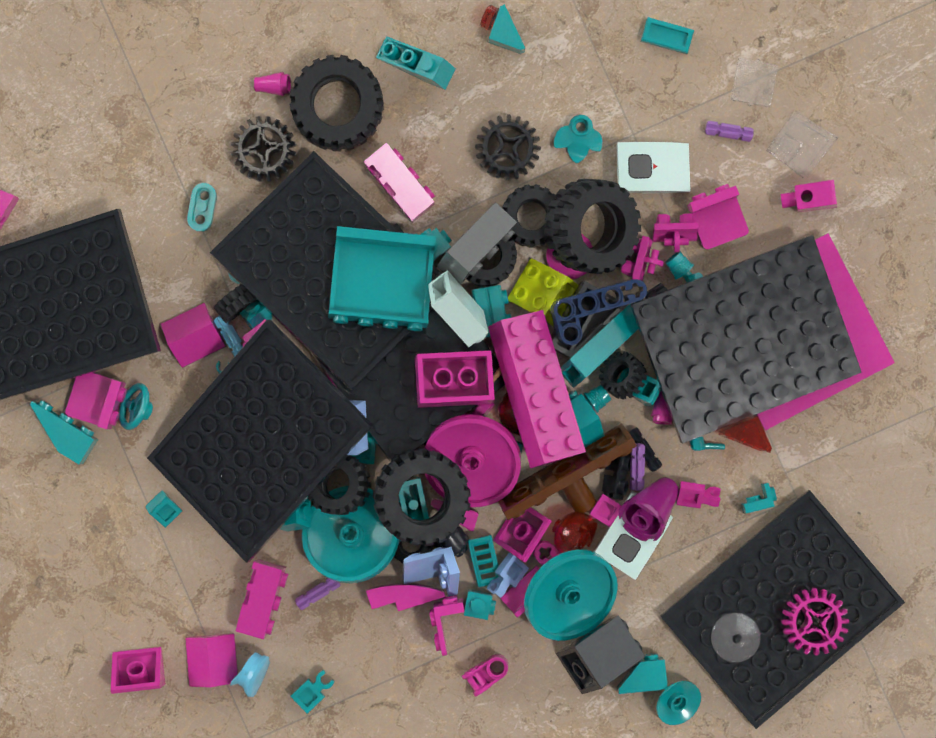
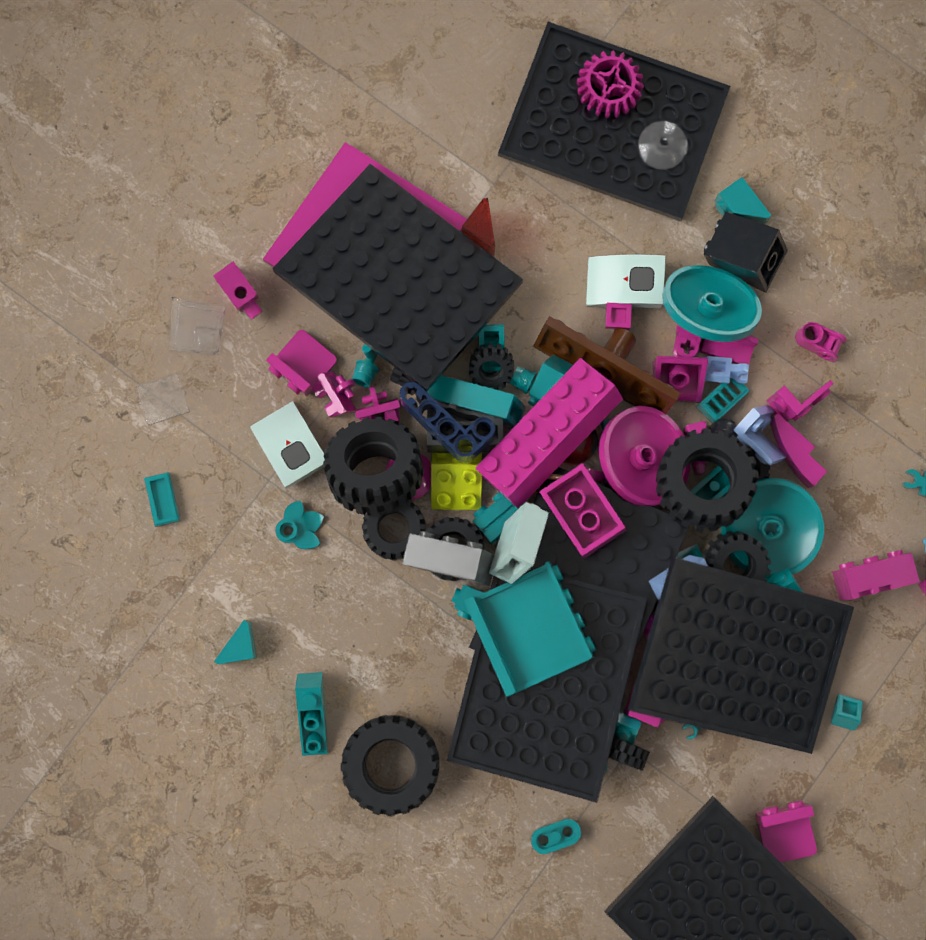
camera: 125 degrees left, 5 degrees down
(67, 438) = (837, 839): teal slope -> none
(139, 408) = (772, 787): teal piece -> none
(192, 335) = (676, 777): dark pink slope -> none
(229, 335) = (658, 740): medium azure axle -> none
(252, 150) = (484, 826): black gear -> none
(274, 84) = (403, 833): dark pink cone -> none
(316, 593) = (842, 531): medium lavender axle -> none
(400, 182) = (430, 664): wedge -> none
(479, 604) = (765, 380): teal brick -> none
(489, 17) = (233, 669): clear red tile -> none
(496, 130) = (324, 575): black gear -> none
(574, 531) = (655, 333): clear red cylinder -> none
(617, 483) = (588, 321): black hinge -> none
(637, 467) = (565, 309): medium lavender axle -> none
(650, 509) = (596, 276): magenta cone -> none
(652, 462) = (546, 310): black axle -> none
(660, 411) = (503, 316): dark pink cone -> none
(678, 703) = (747, 162): teal dish -> none
(695, 494) = (558, 247): dark pink plate -> none
(698, 444) = (511, 265): teal hand -> none
(729, 131) = (218, 395): medium lavender axle -> none
(755, 502) = (535, 189): teal bracket -> none

